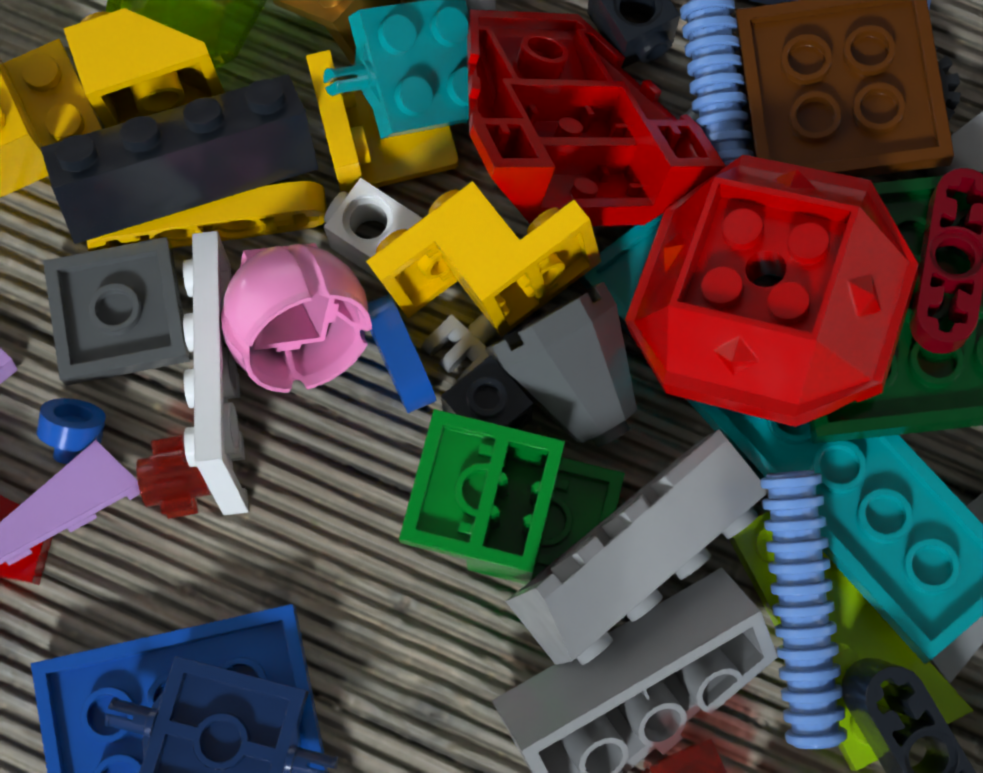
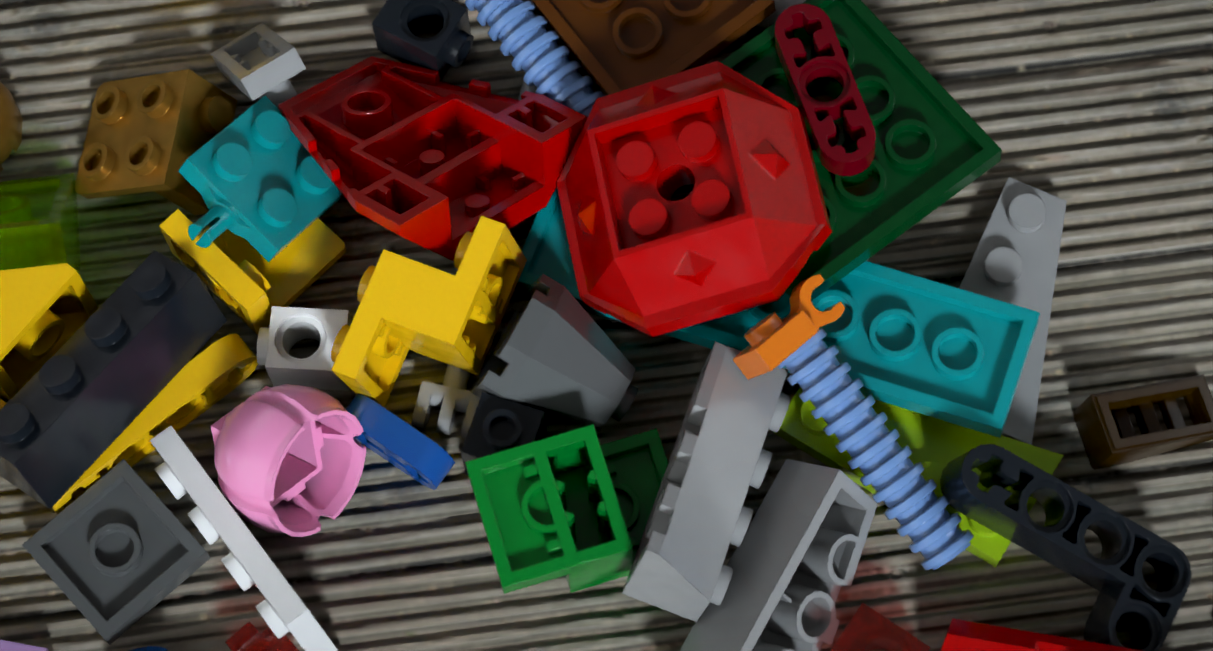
camera: 30 degrees left, 5 degrees down
(773, 461) = (778, 338): none -> orange plate

